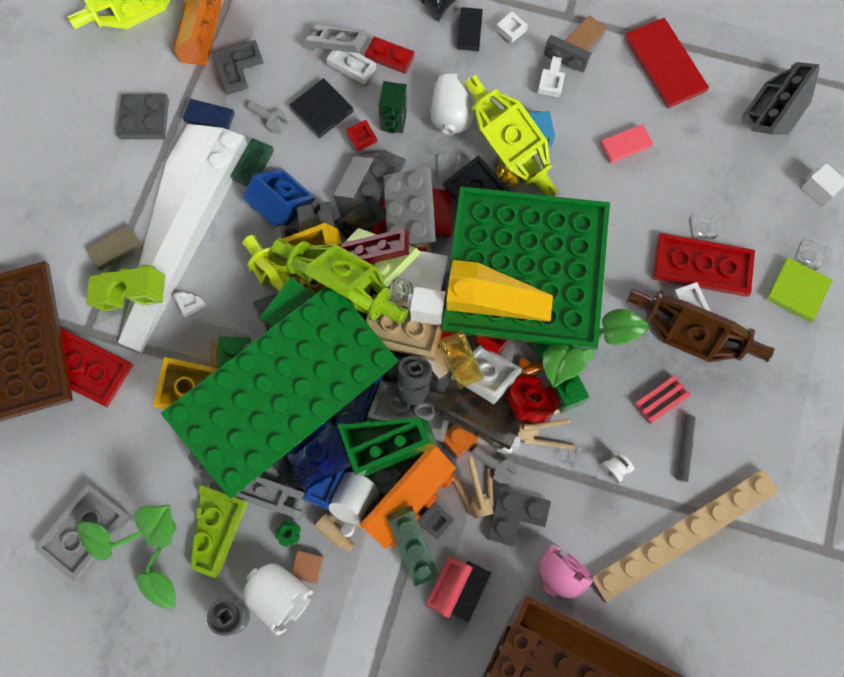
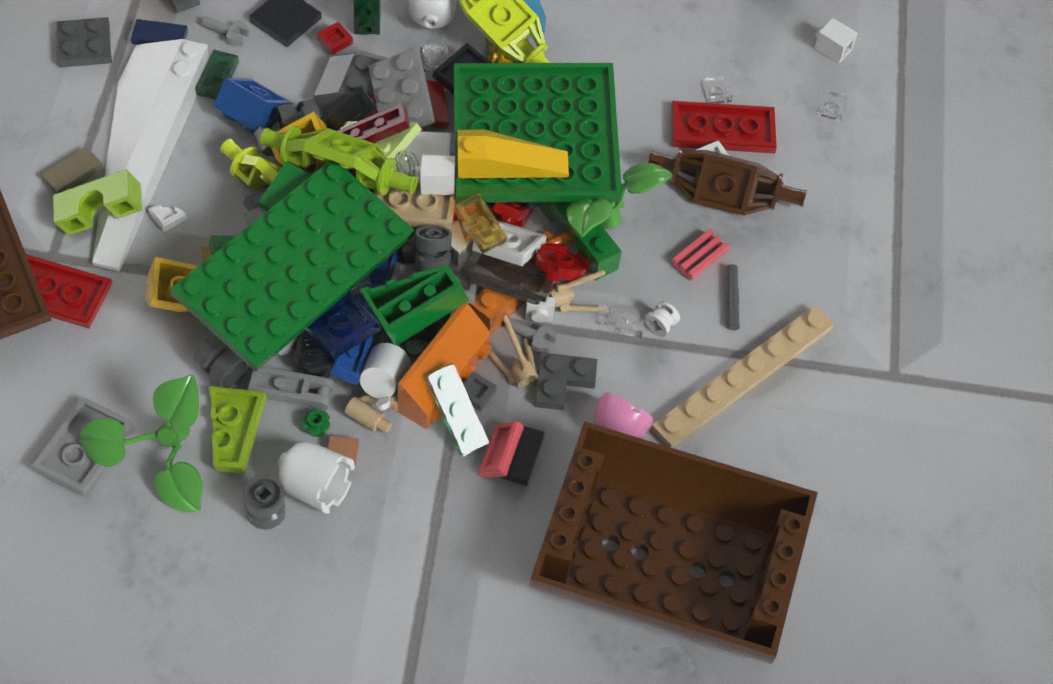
camera: 15 degrees left, 15 degrees down
(626, 143) = (623, 22): coral tile -> none
(799, 289) = (826, 140): lime tile -> none

